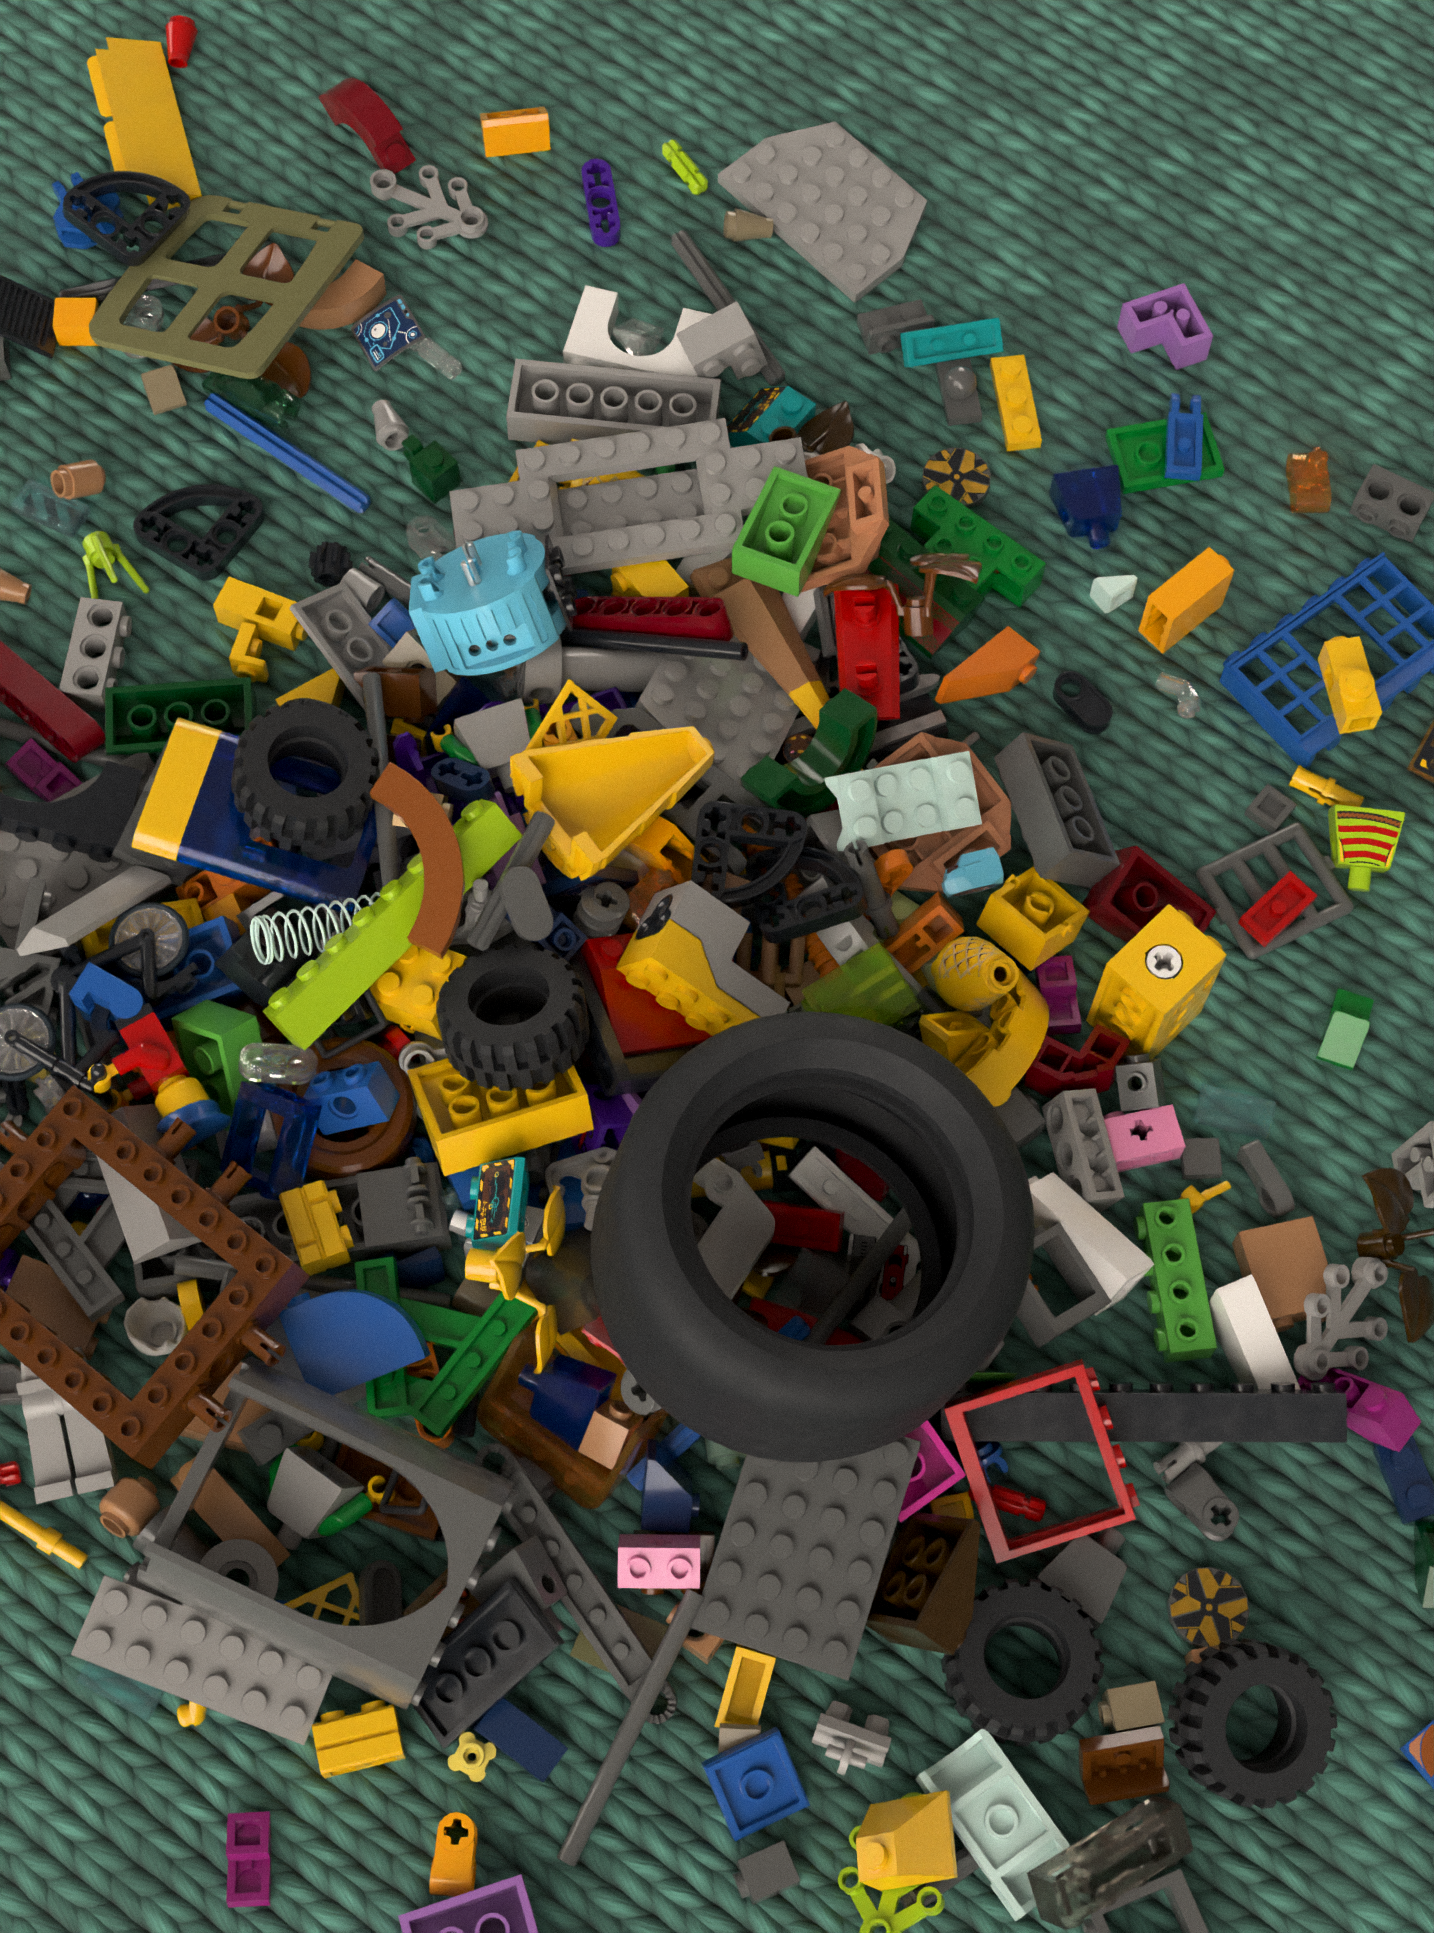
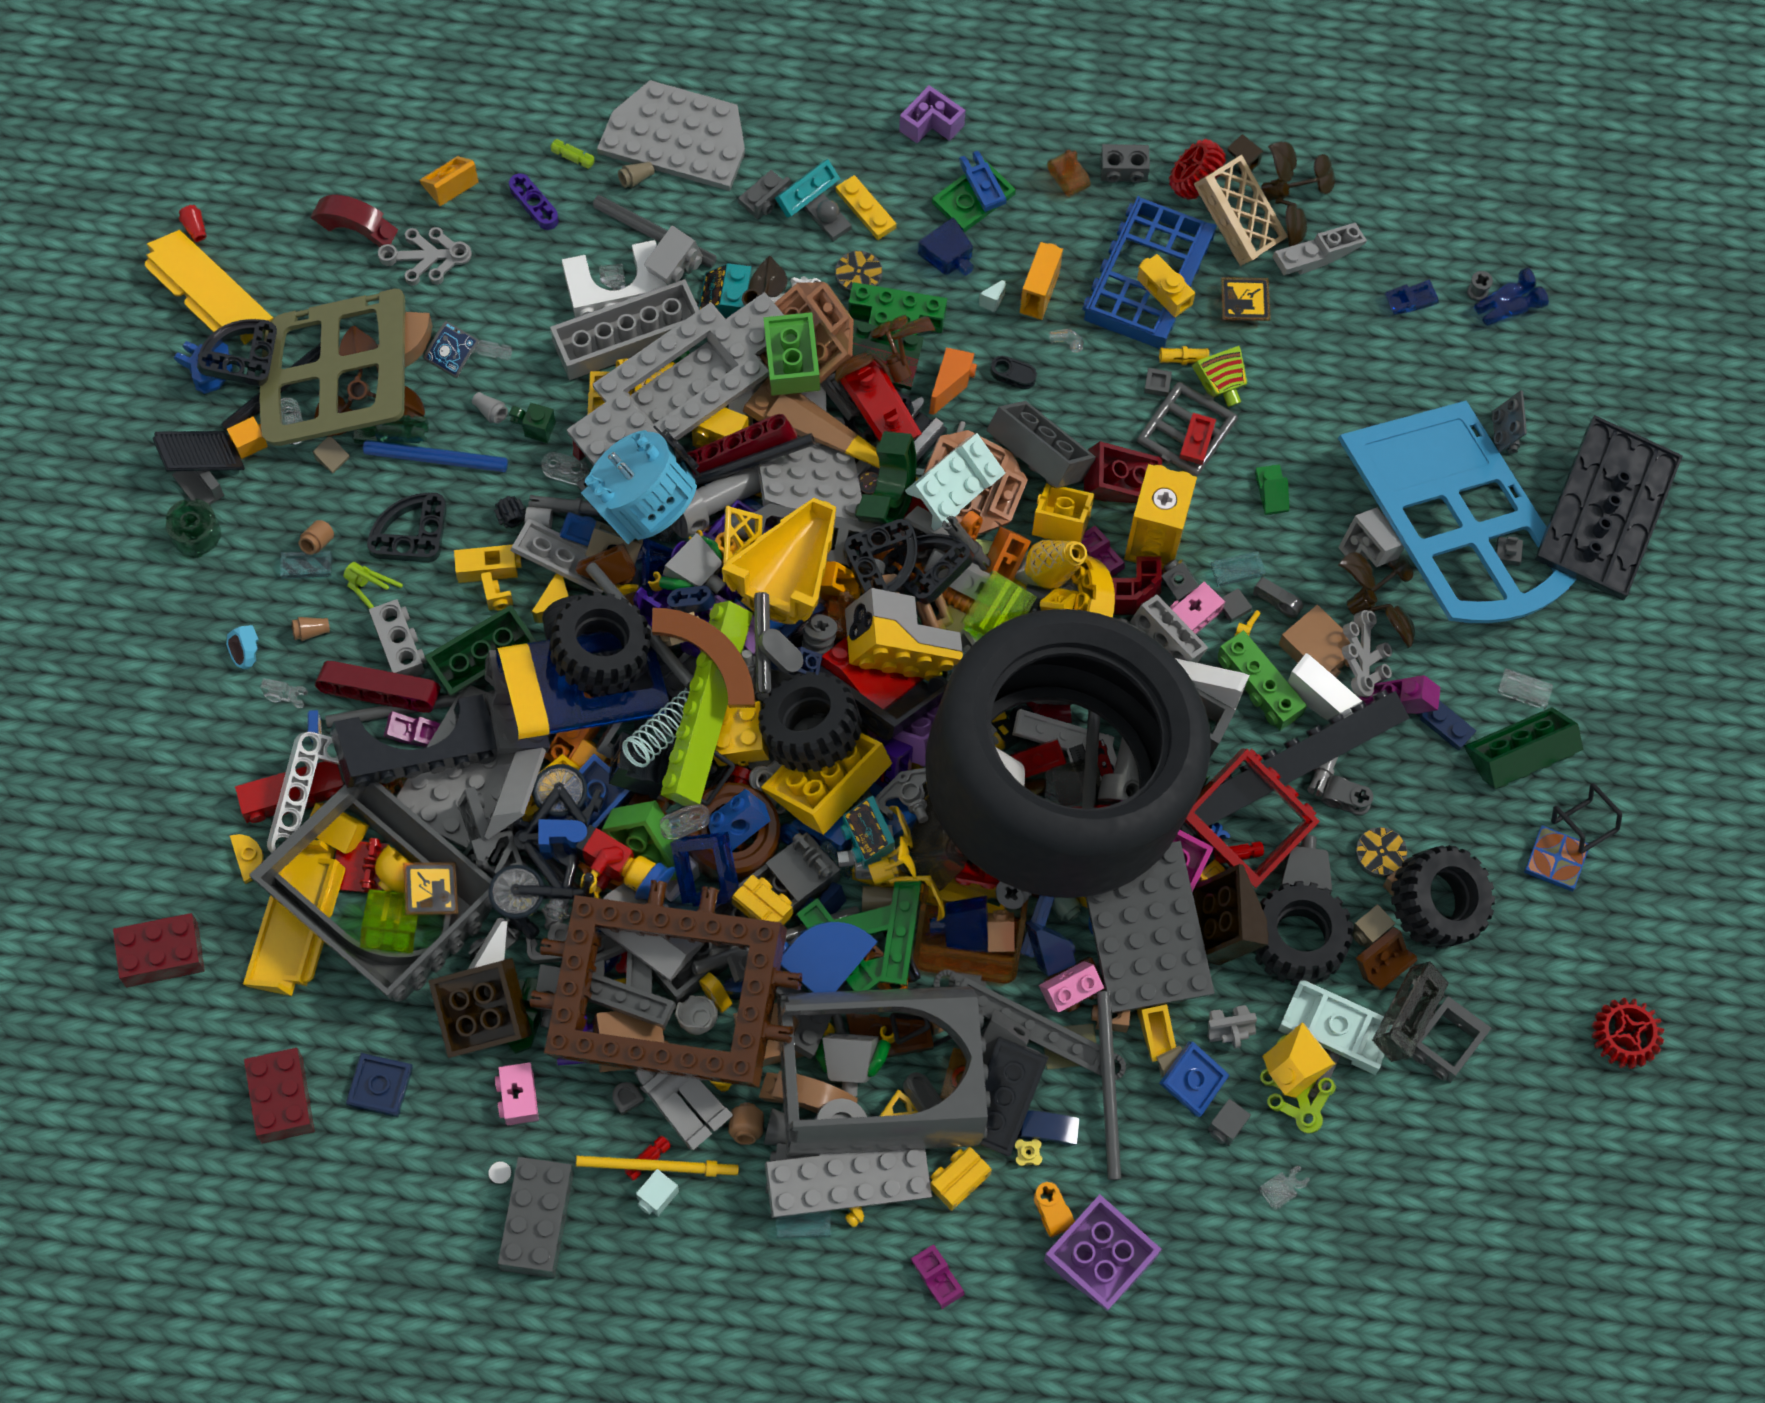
camera: 30 degrees left, 0 degrees up
(973, 873) = (1017, 504): medium azure rock -> none

